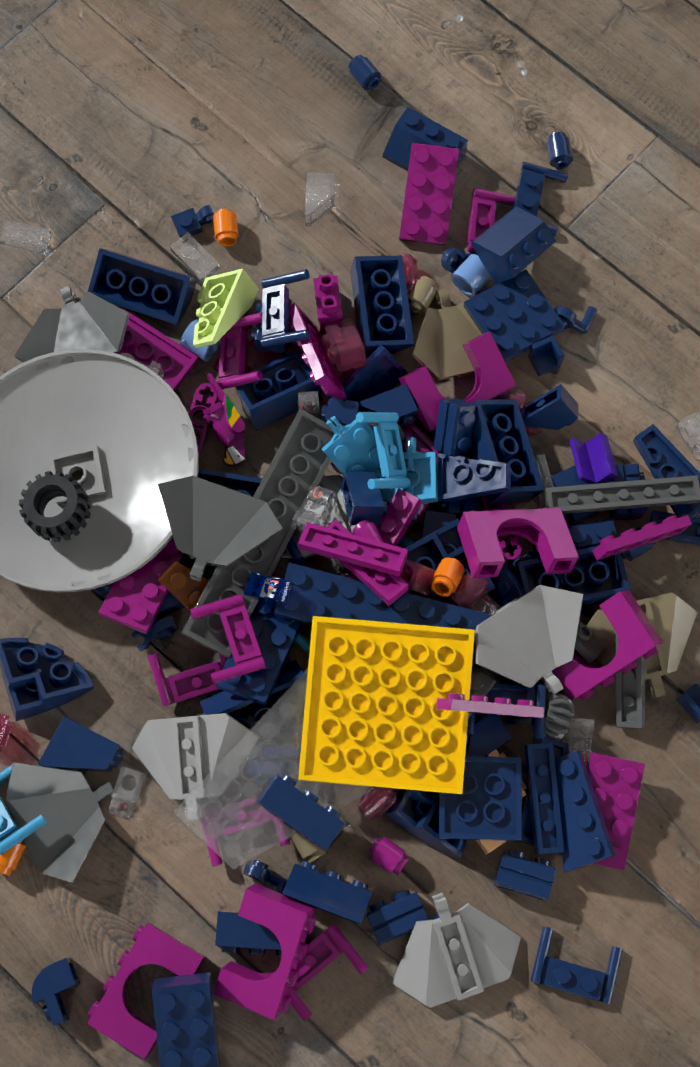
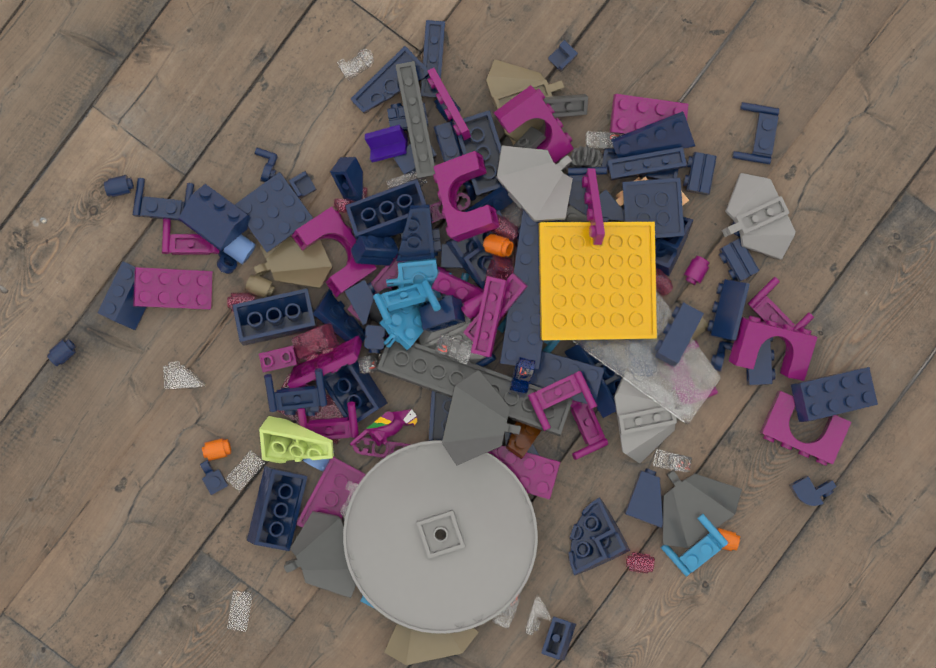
camera: 90 degrees left, 15 degrees up
(43, 491) = (474, 559): black tyre -> none
(160, 629) = (552, 453): dark blue plate -> none

